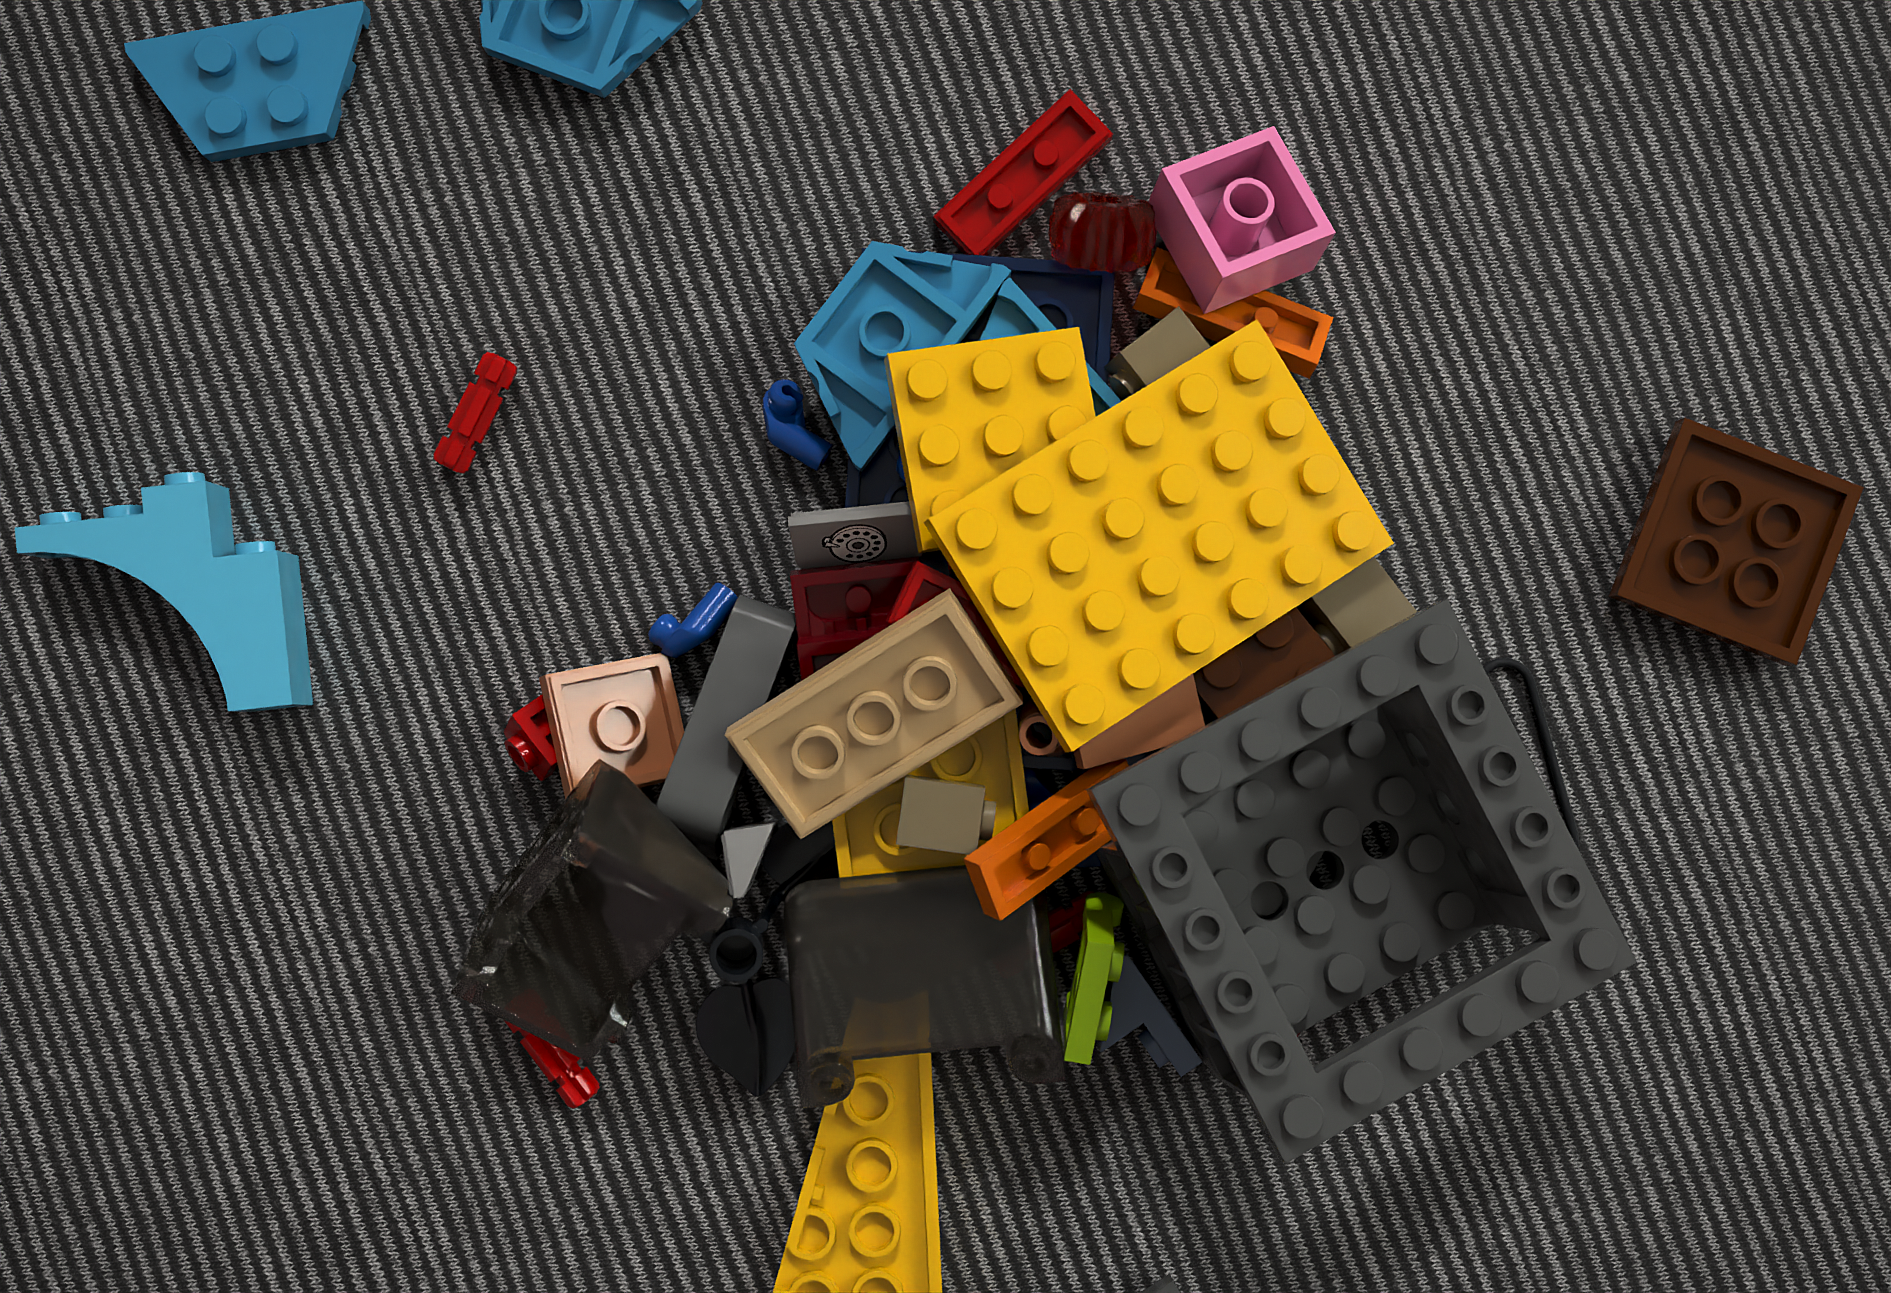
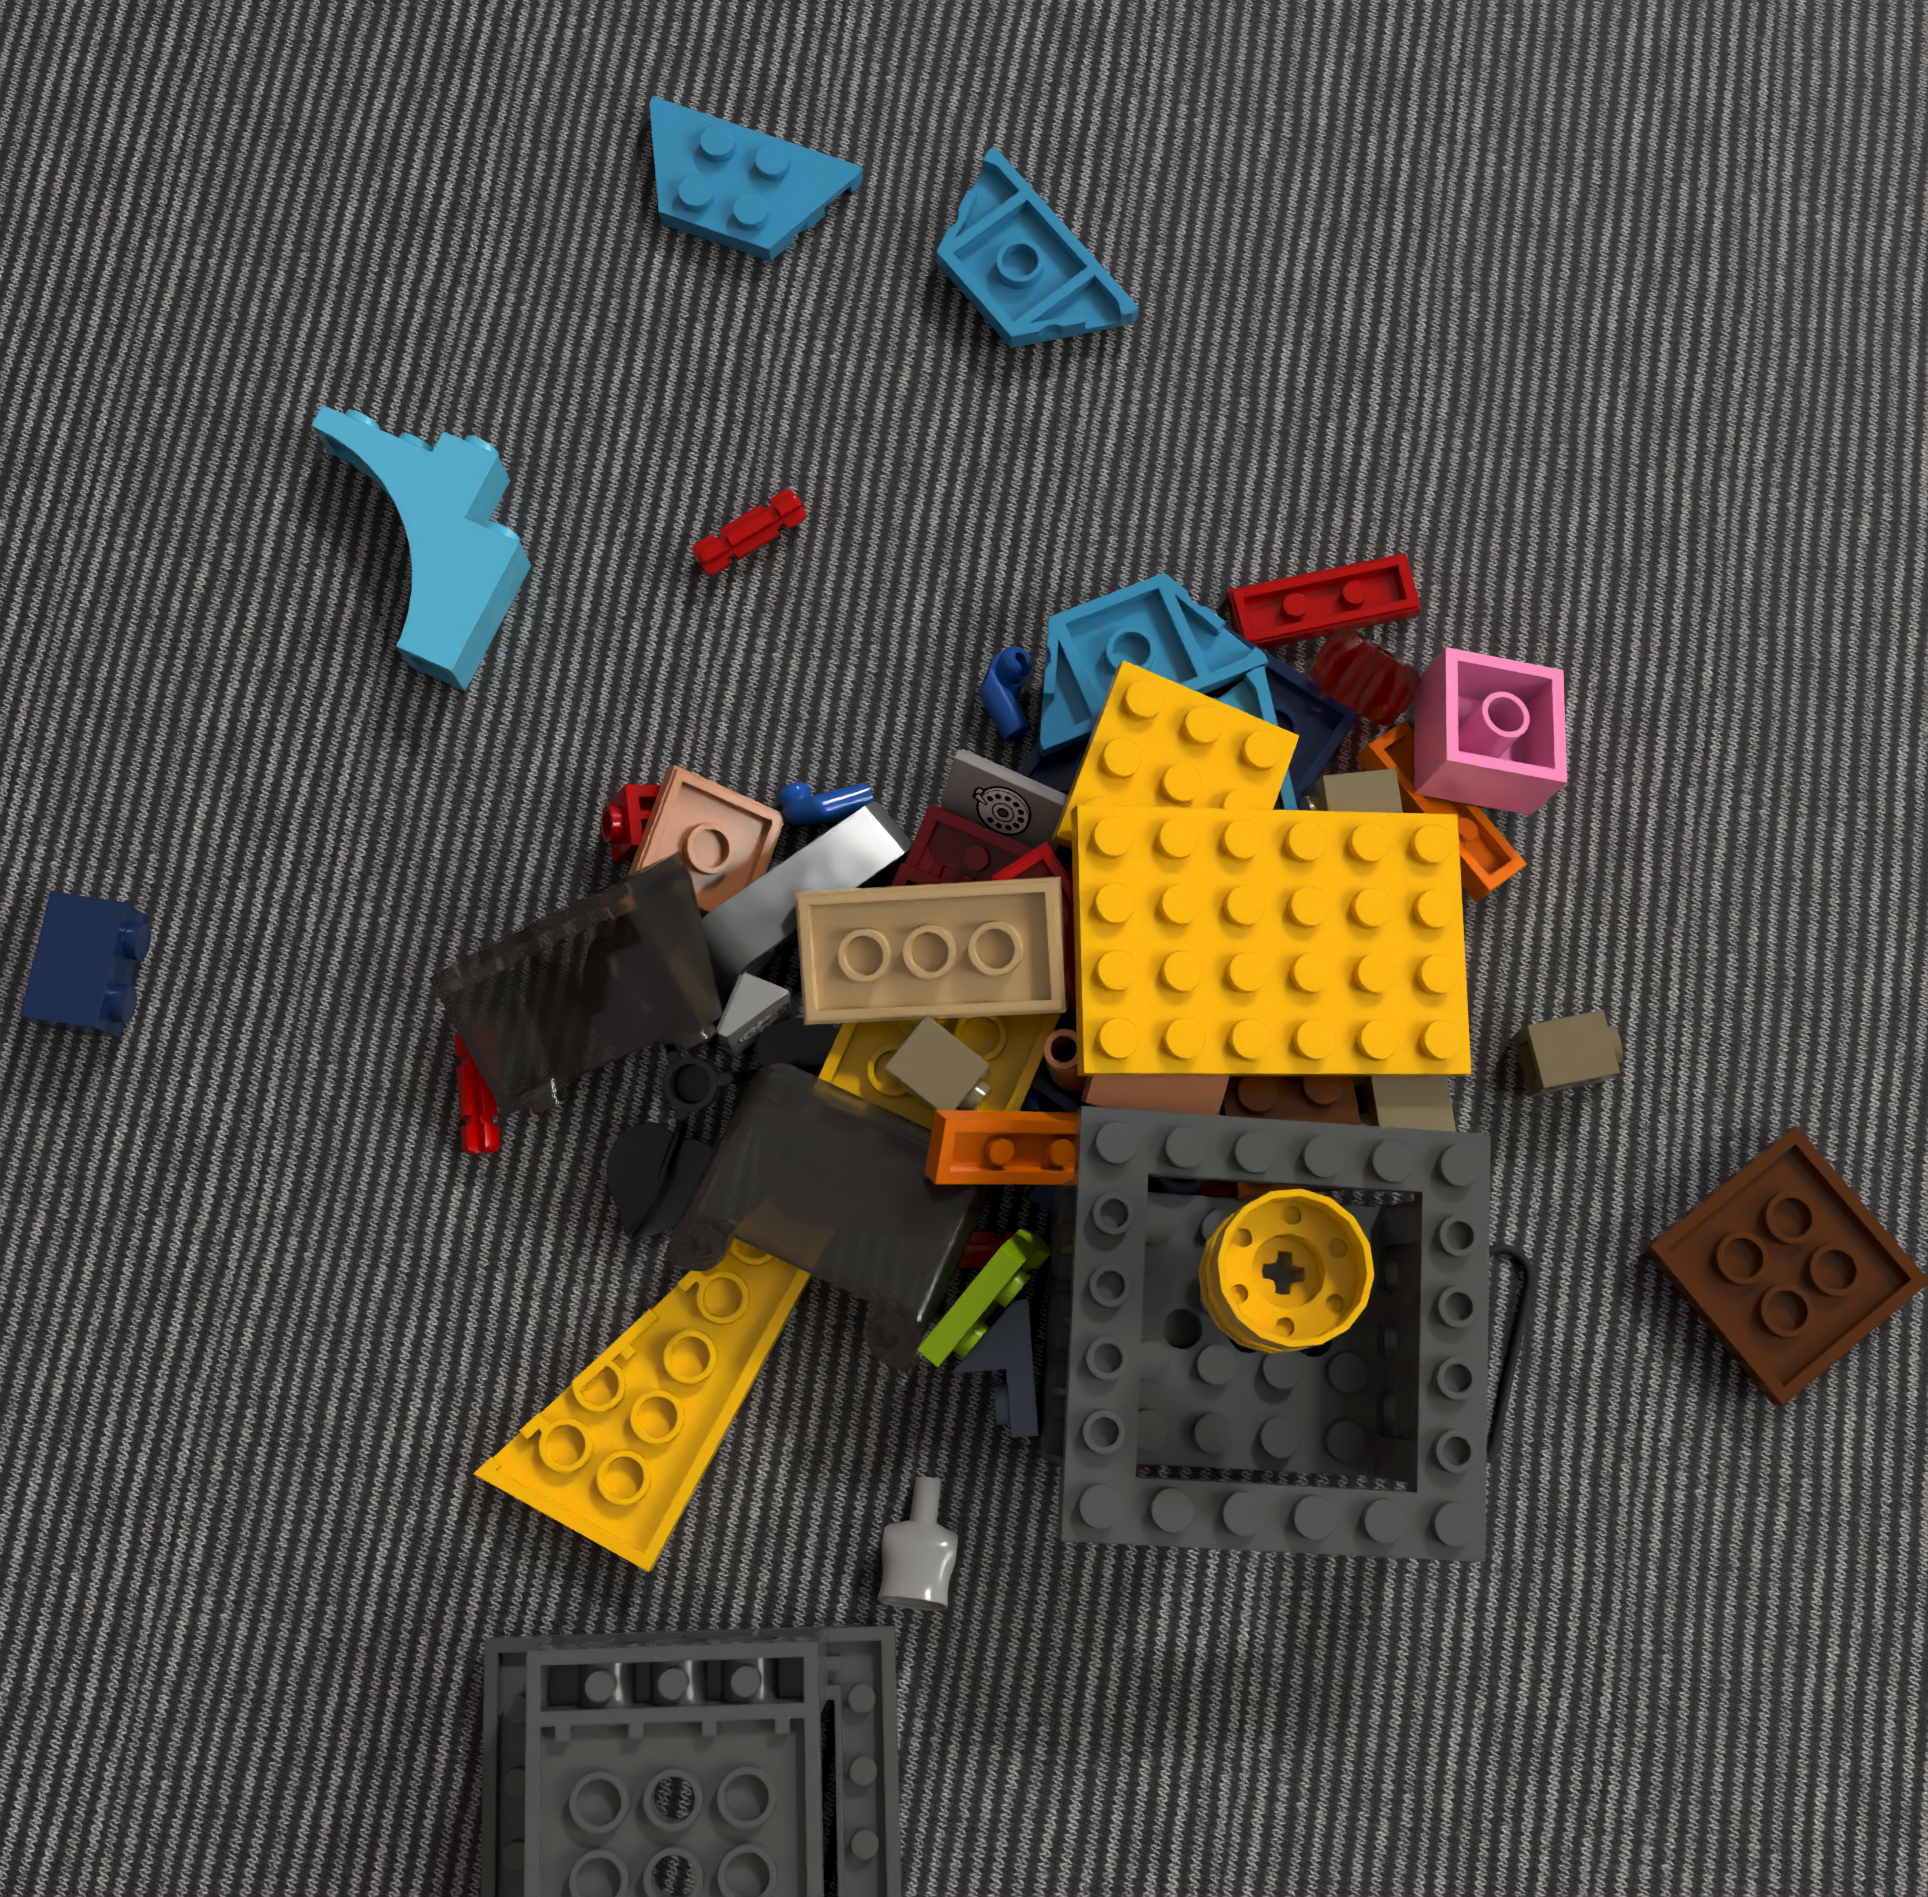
camera: 30 degrees right, 10 degrees down
(142, 1149) = (86, 965): none -> dark blue brick
(1156, 1208) = (918, 1554): none -> light grey piece
(1388, 861) = (1314, 1244): none -> yellow wheel
(1459, 467) = (1568, 1053): none -> dark tan brick

